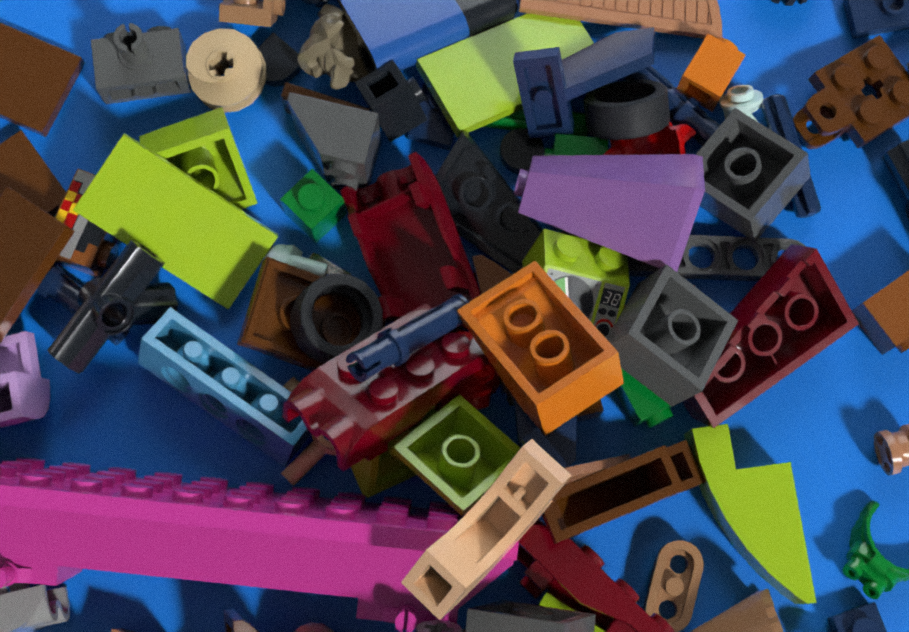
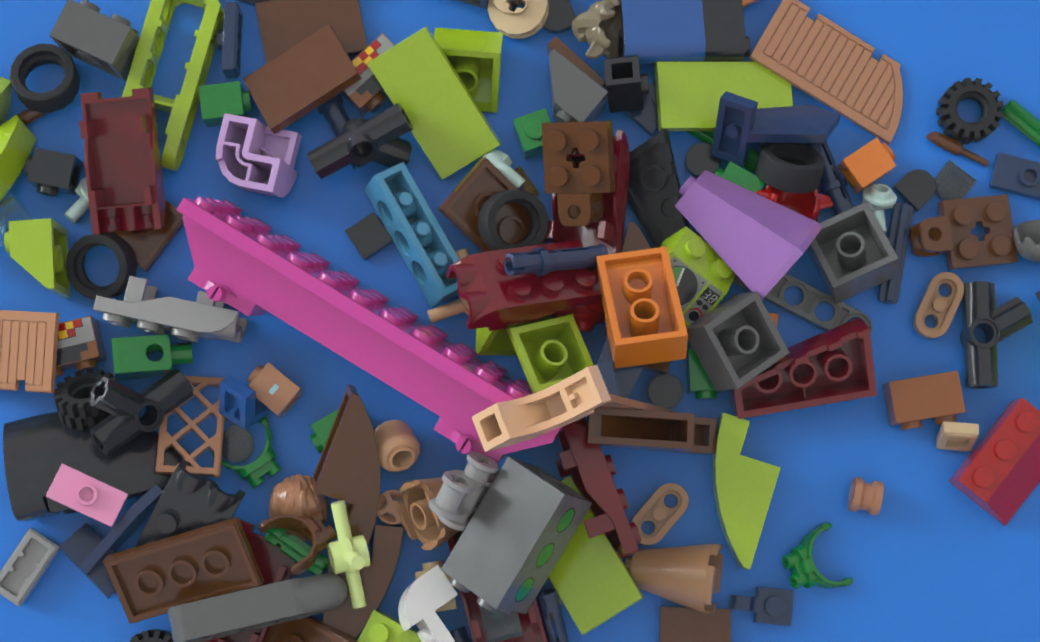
camera: 30 degrees right, 5 degrees up
(170, 416) = (369, 236): none -> black tile
(391, 239) = (584, 185): none -> reddish brown plate
(608, 436) = (665, 391): none -> black tile
(776, 74) = (916, 188): none -> black tile
(794, 11) = (954, 147): none -> reddish brown piece
(811, 50) = (952, 182): none -> clear smoke tile
(870, 194) = (937, 306): none -> medium nougat plate

